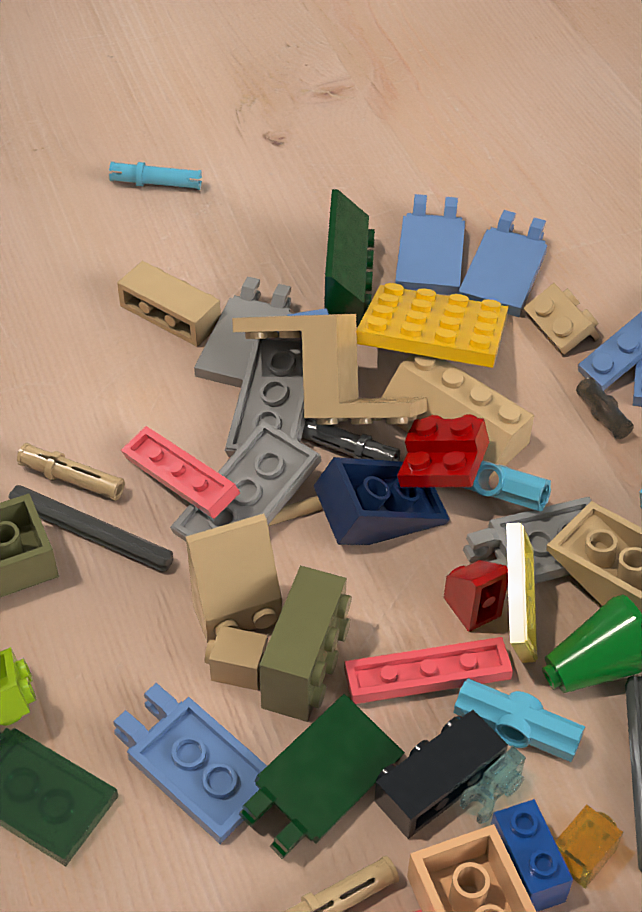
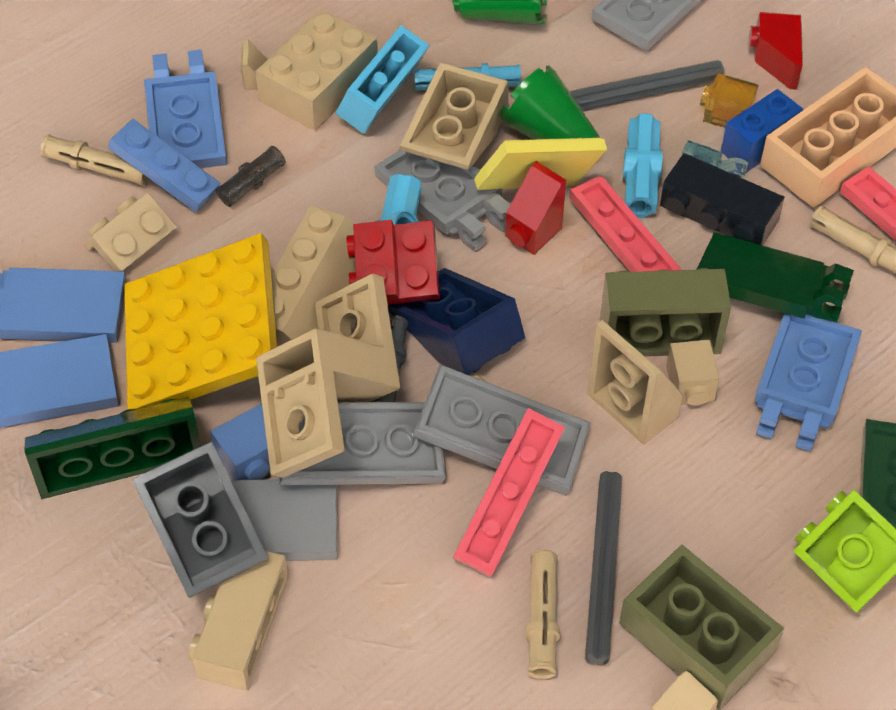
camera: 110 degrees left, 5 degrees up
(246, 276) = (200, 519): none -> dark grey slope

